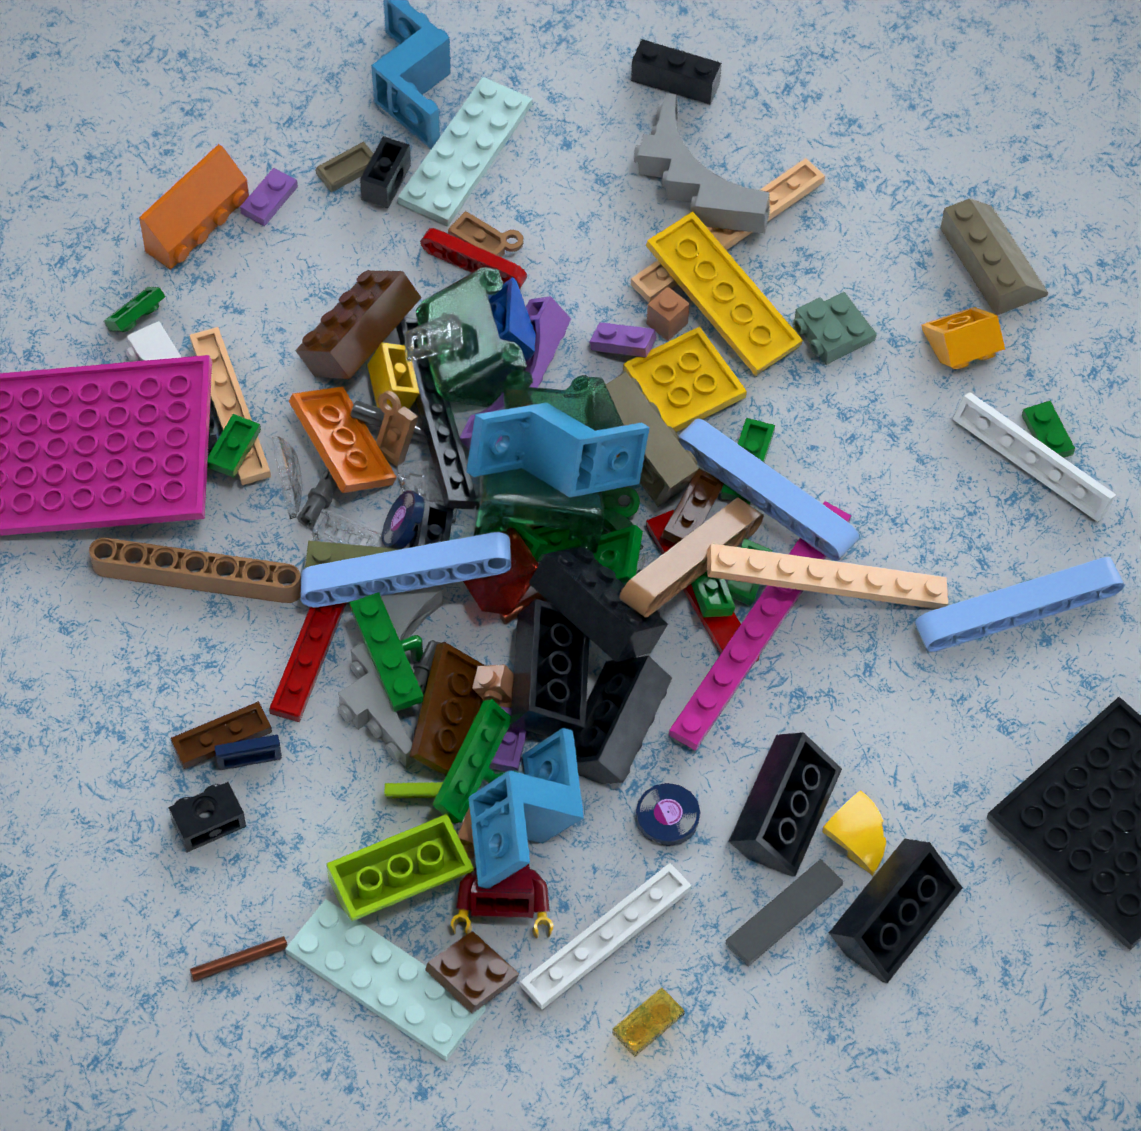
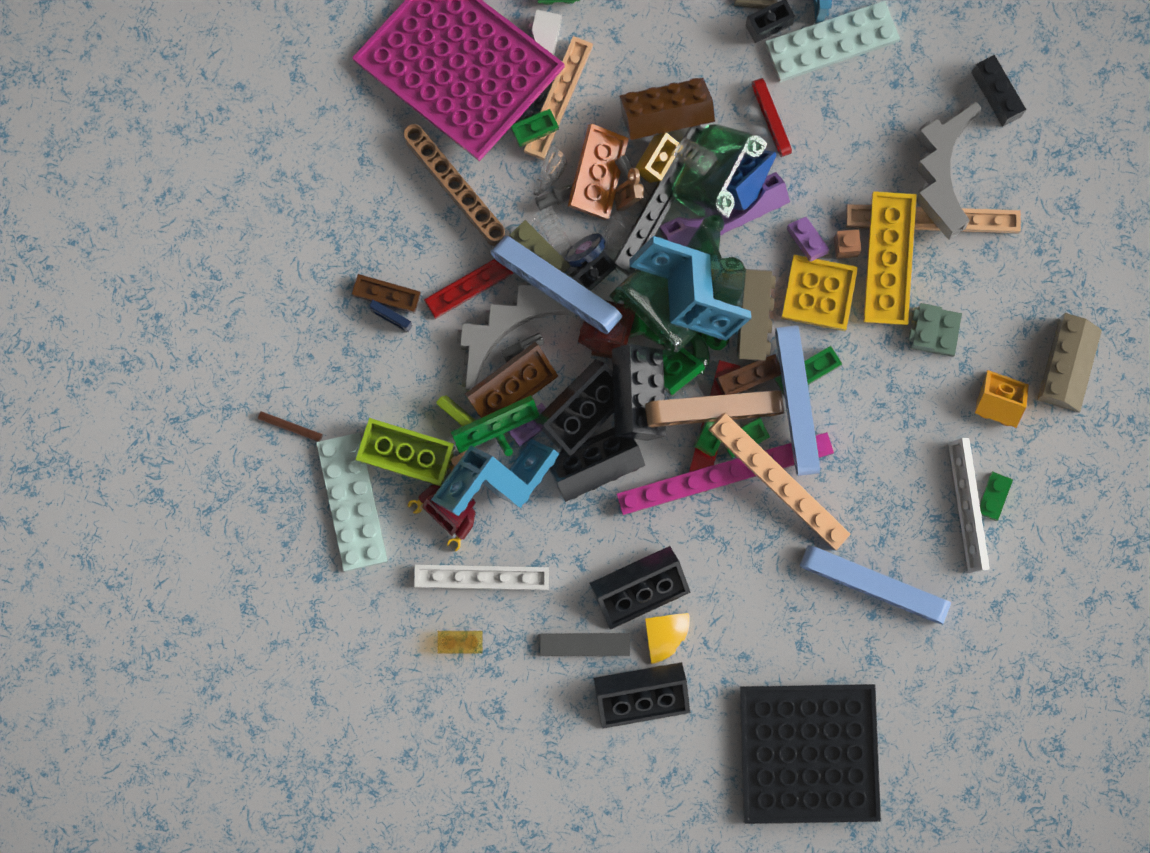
camera: 40 degrees right, 20 degrees up
(199, 831) = (348, 343): black brick -> none
(388, 651) = (507, 322): green plate -> none
(472, 971) = (395, 537): reddish brown plate -> none
(484, 236) = (789, 107): medium nougat hinge -> none
(494, 683) = (547, 389): nougat brick -> none
(668, 814) = (575, 538): dark blue tile -> none

